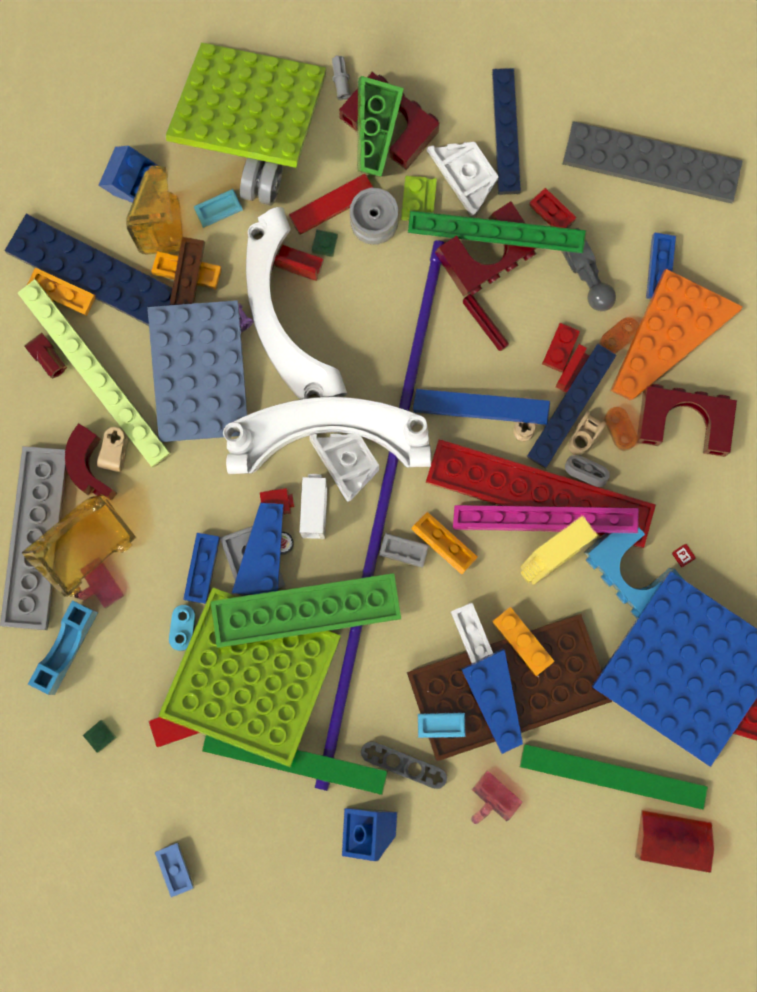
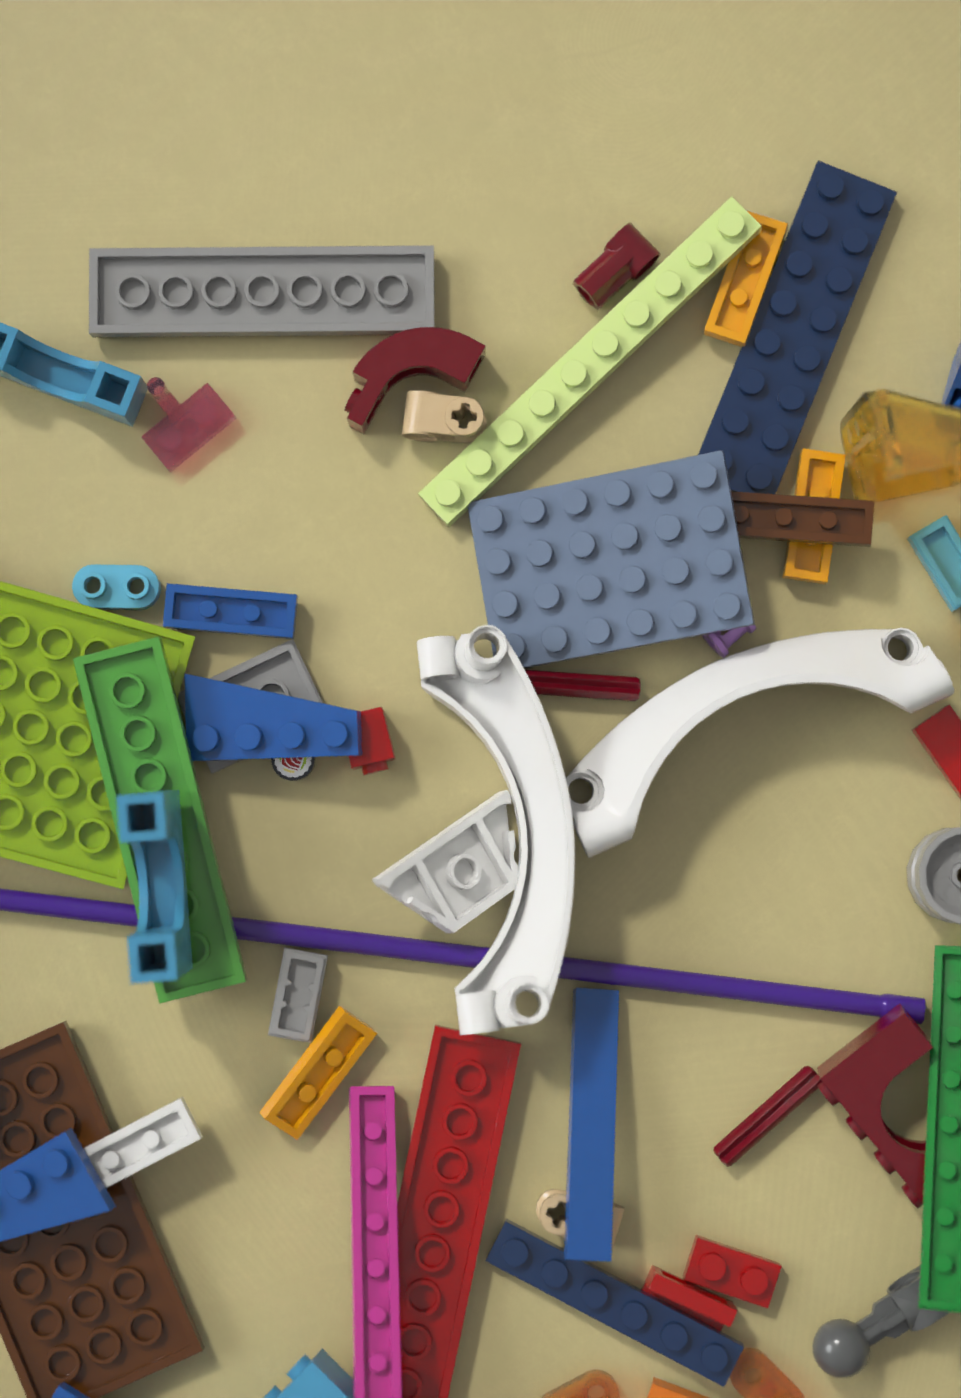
camera: 80 degrees right, 5 degrees up
(79, 544) = (250, 374): clear yellow windscreen -> none
(260, 388) = (585, 685): none -> dark red axle
(298, 262) = (853, 734): red panel -> none
(313, 507) = (360, 813): white window -> none
(324, 243) = (898, 781): clear green plate -> none
(349, 609) = (162, 939): none -> dark azure arch
(523, 641) = (137, 1242): light orange plate -> none
(557, 550) = (292, 1306): light yellow arch -> none
(587, 431) = (566, 1340): tan piece -> none
(587, 470) = (485, 1343): light grey plate -> none

